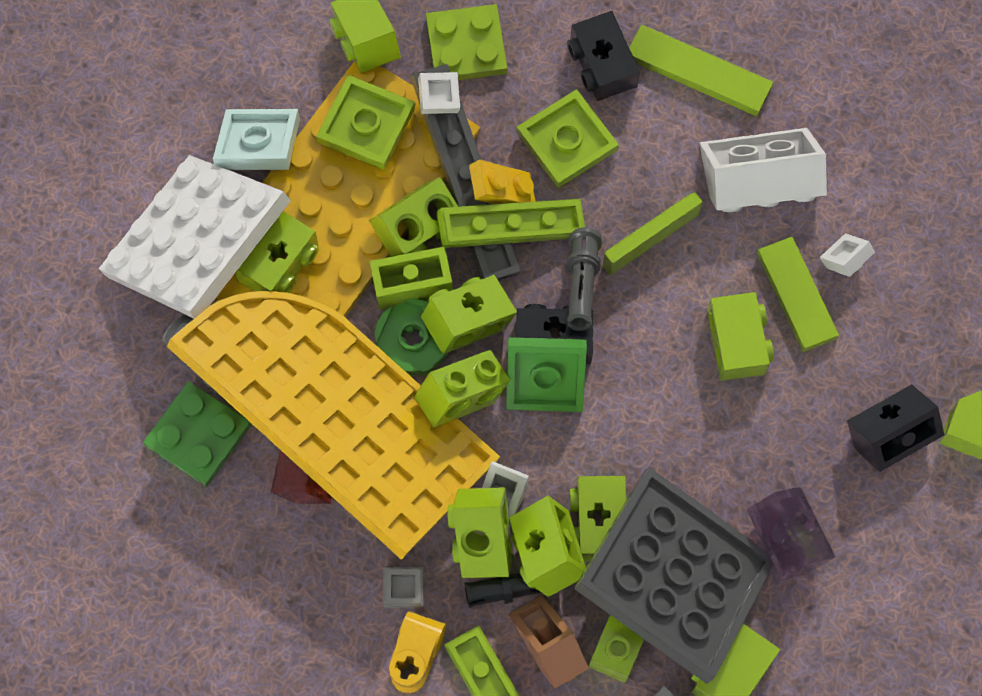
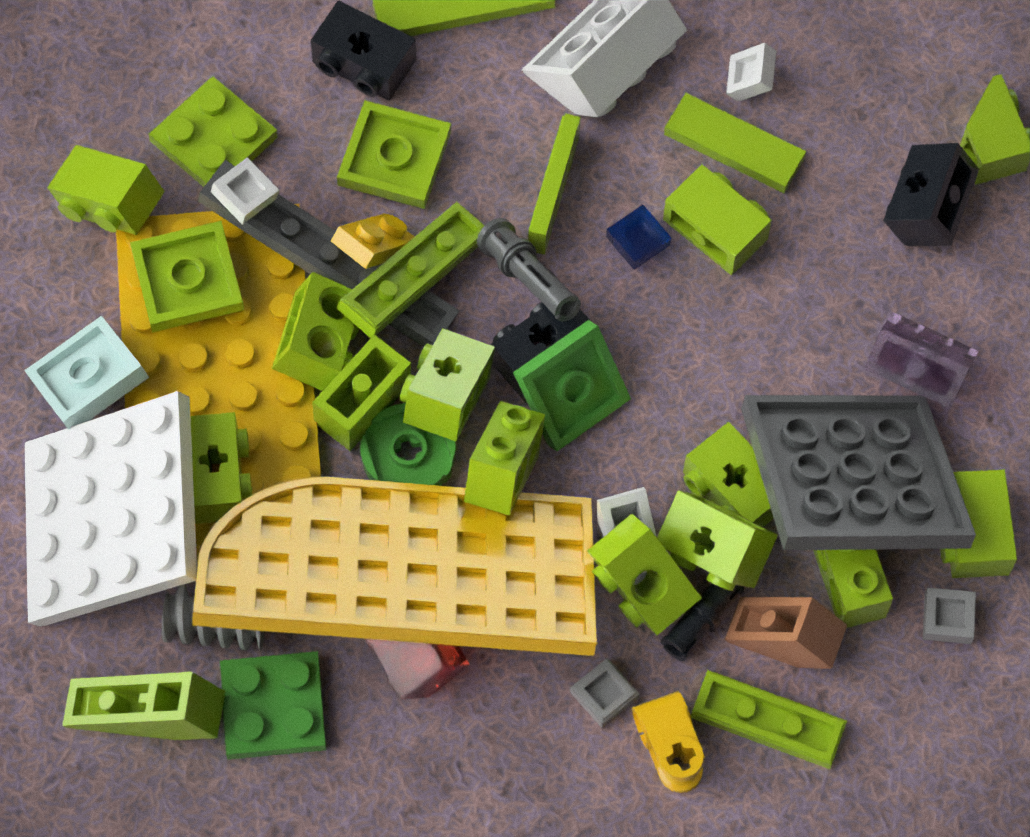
camera: 40 degrees left, 5 degrees down
(121, 375) = (146, 705): none -> lime slope
(677, 309) = (638, 237): none -> clear blue plate

